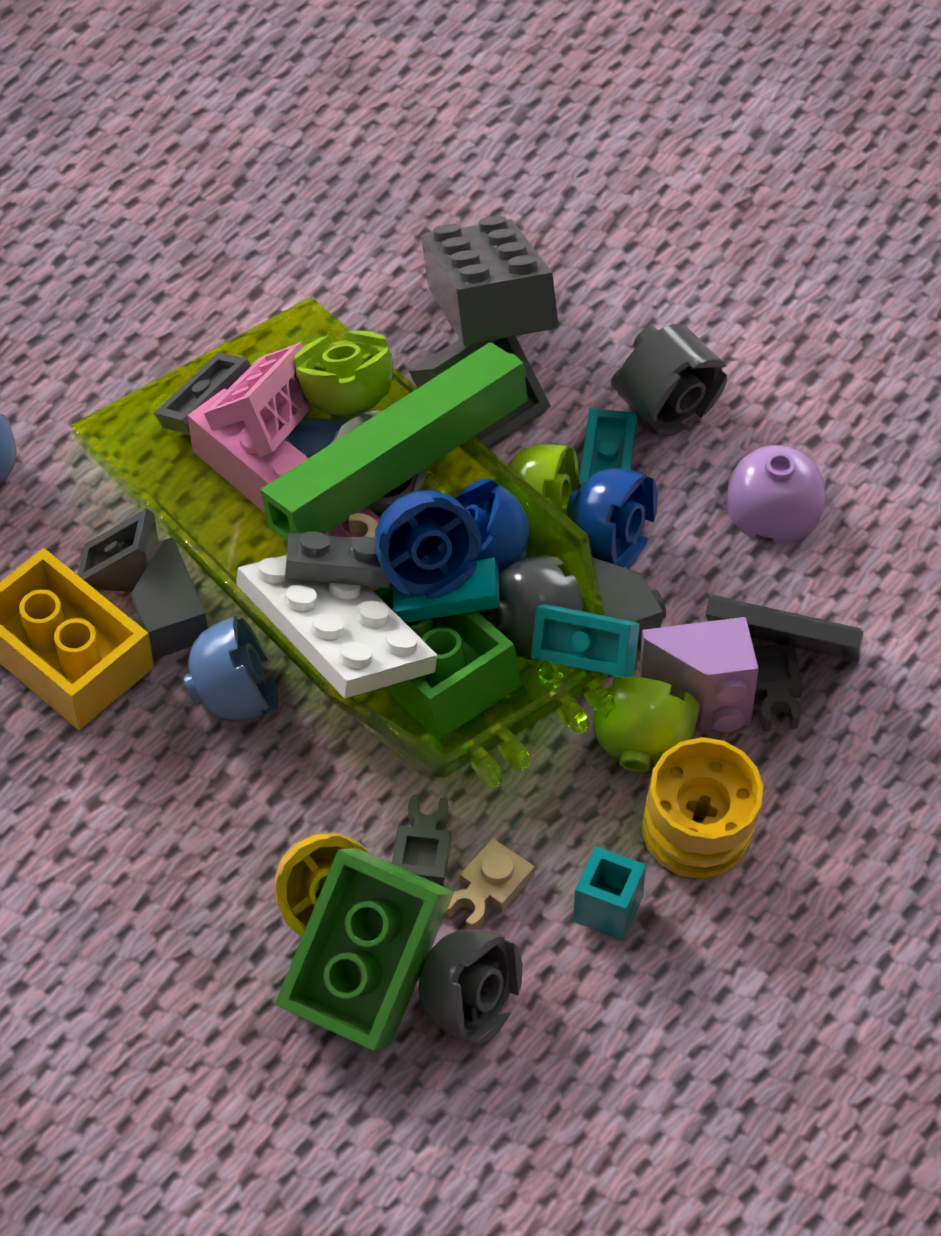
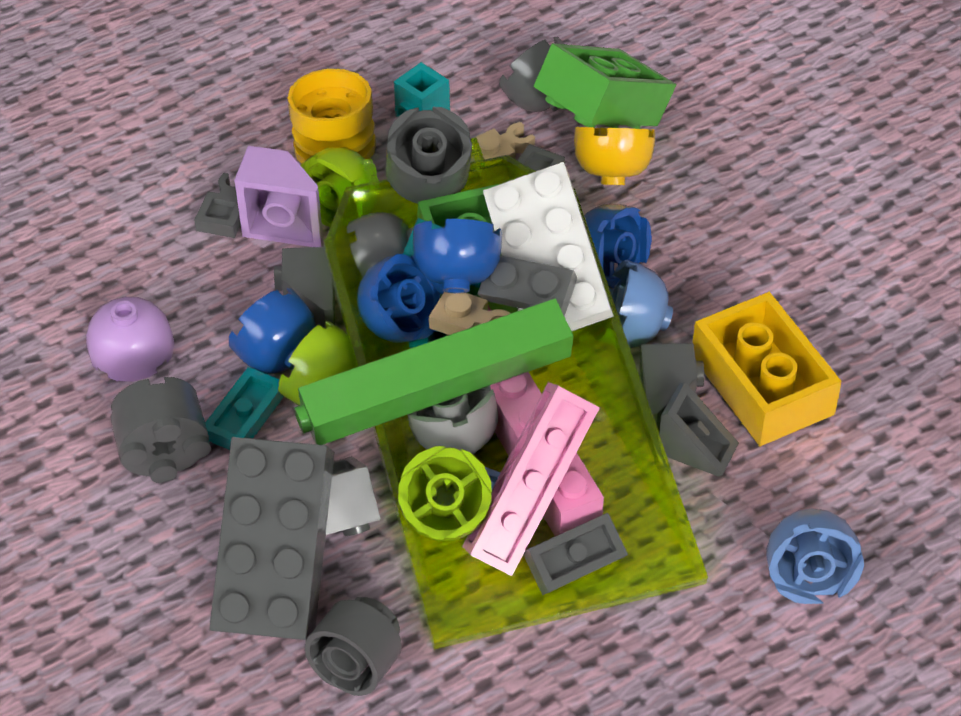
camera: 160 degrees left, 5 degrees down
(291, 749) = (618, 236): none -> blue cylinder
(378, 259) = (349, 640): none -> dark grey piece
(521, 677) = (428, 154): none -> dark grey brick
(585, 640) = (356, 176): teal plate -> none
(791, 628) = (199, 213): dark grey tile -> none

